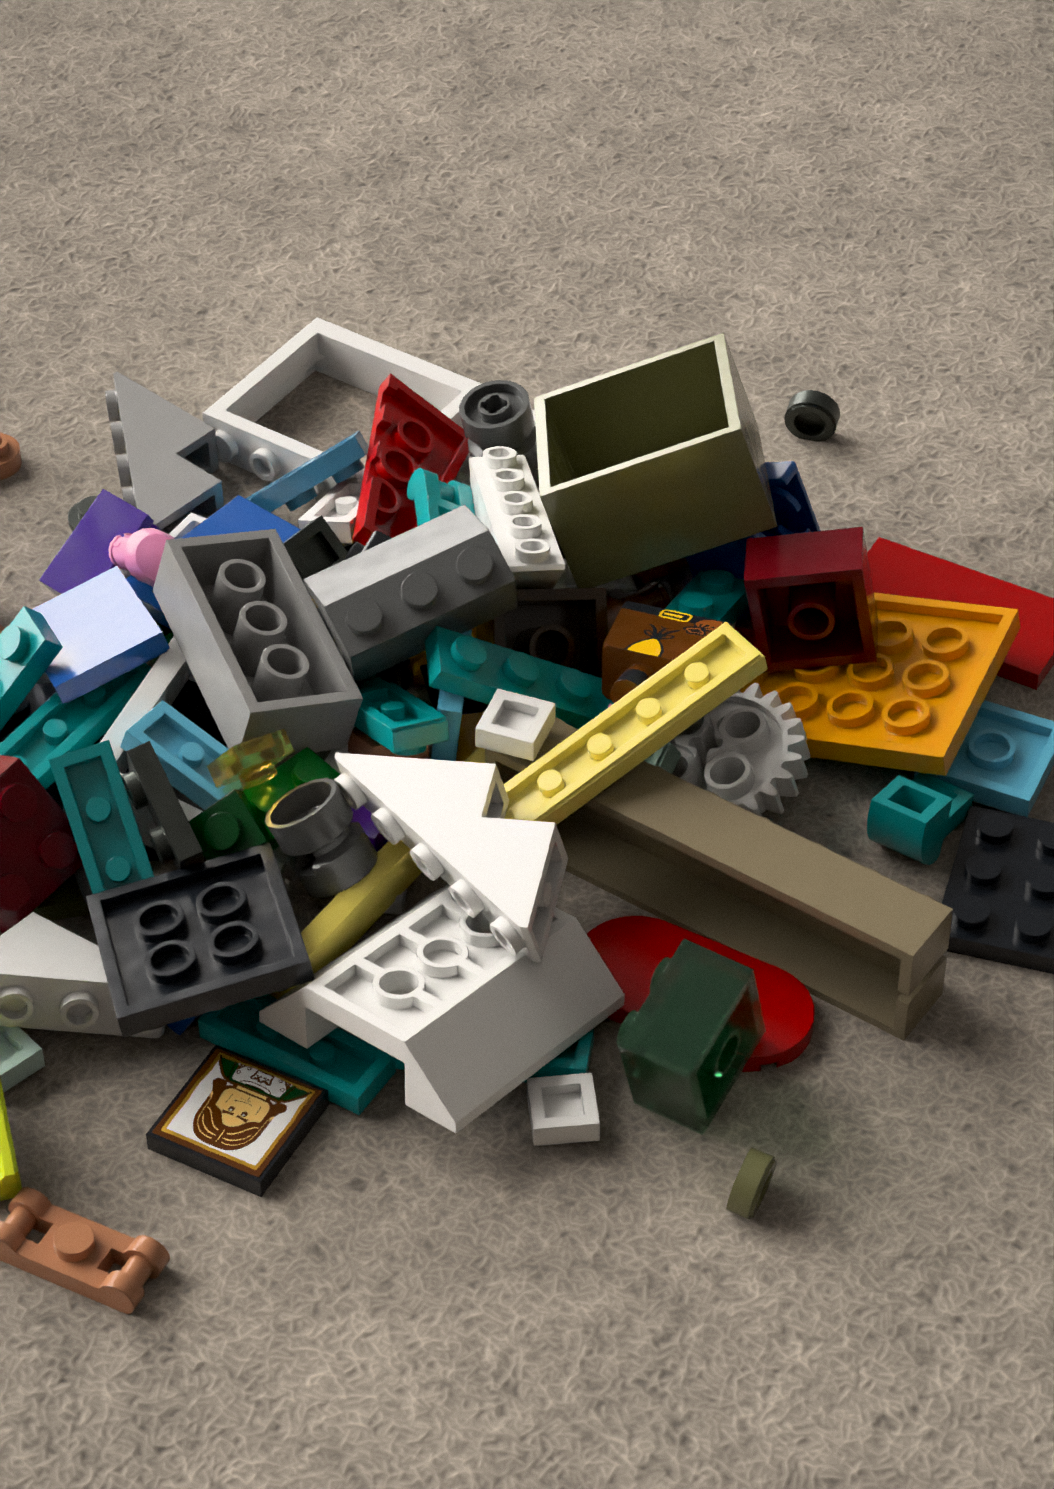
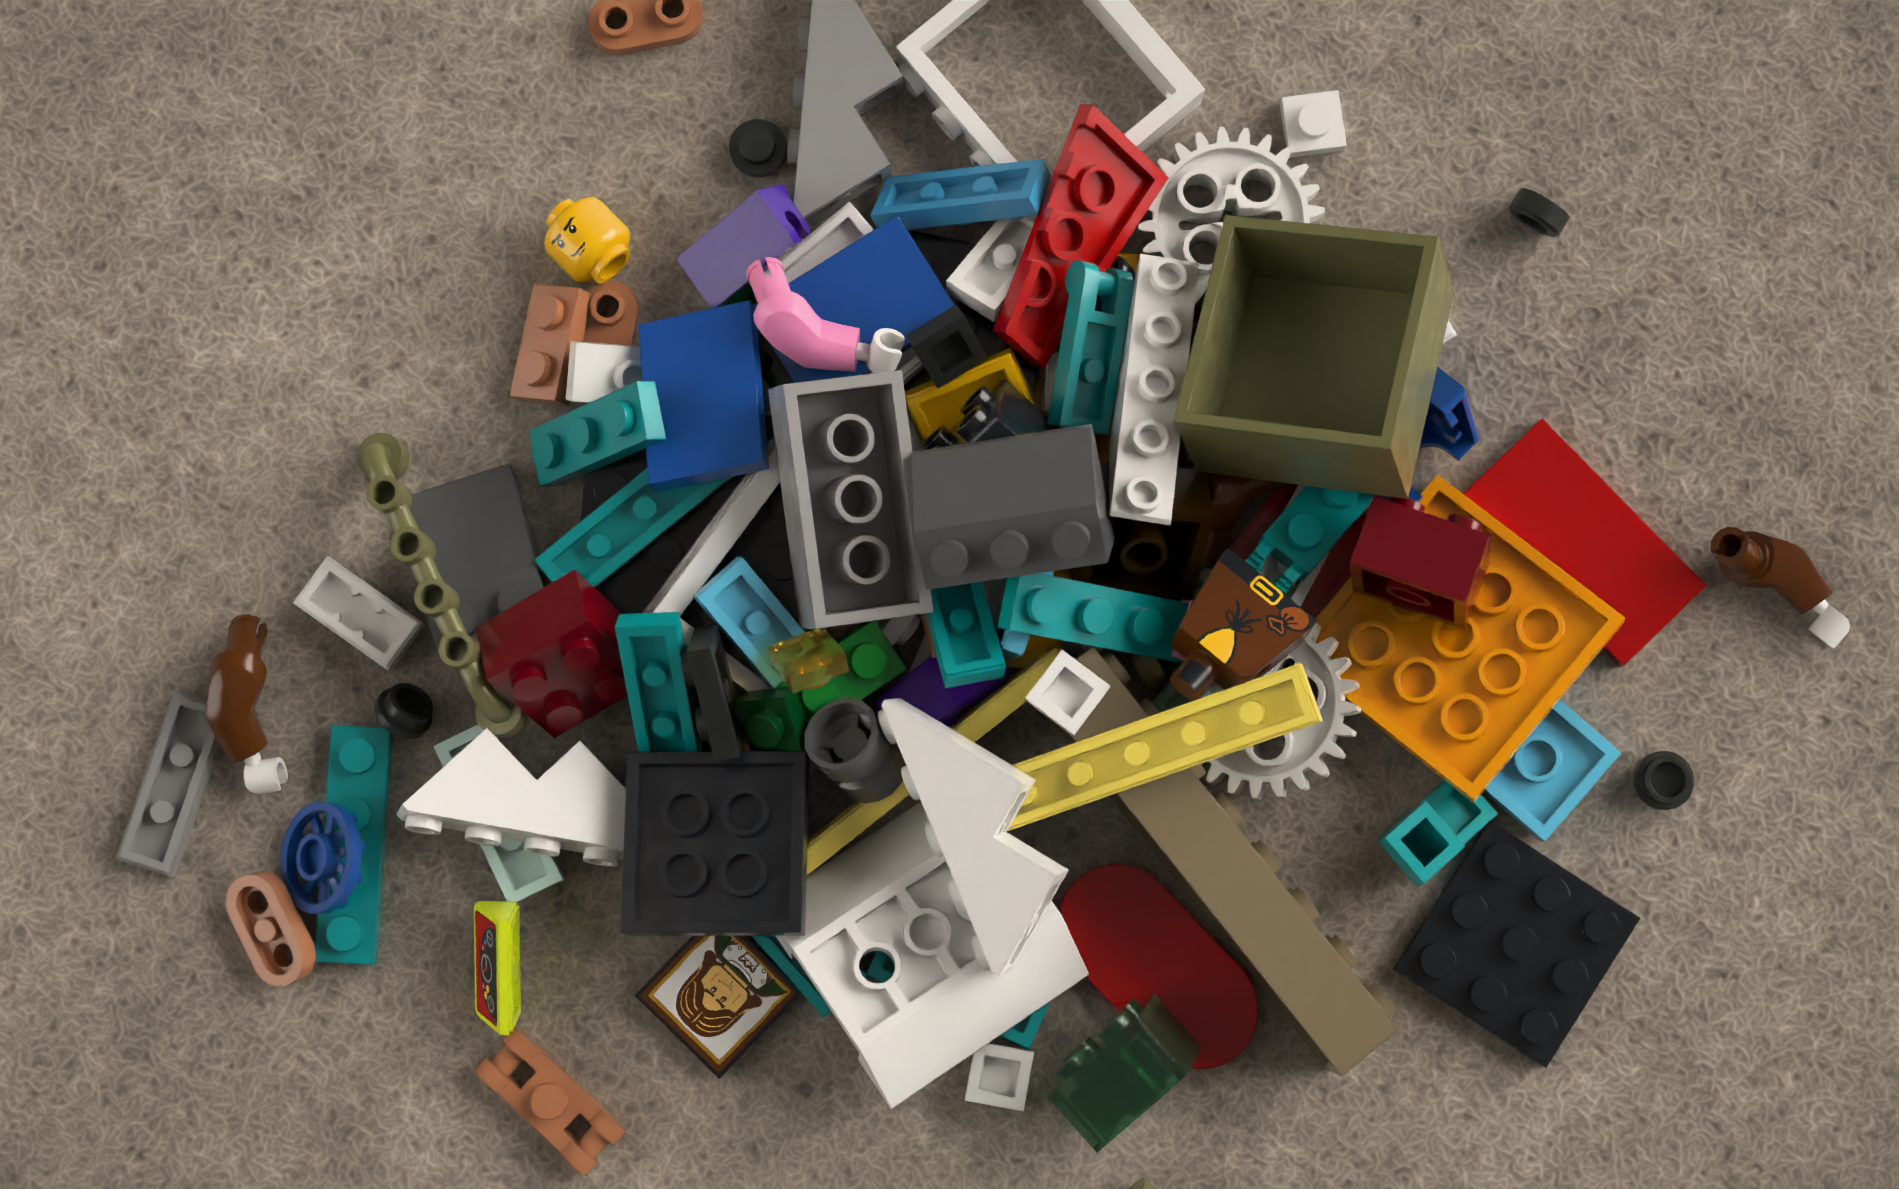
camera: 15 degrees right, 40 degrees up
(499, 416) = (1188, 204): dark grey wheel -> none

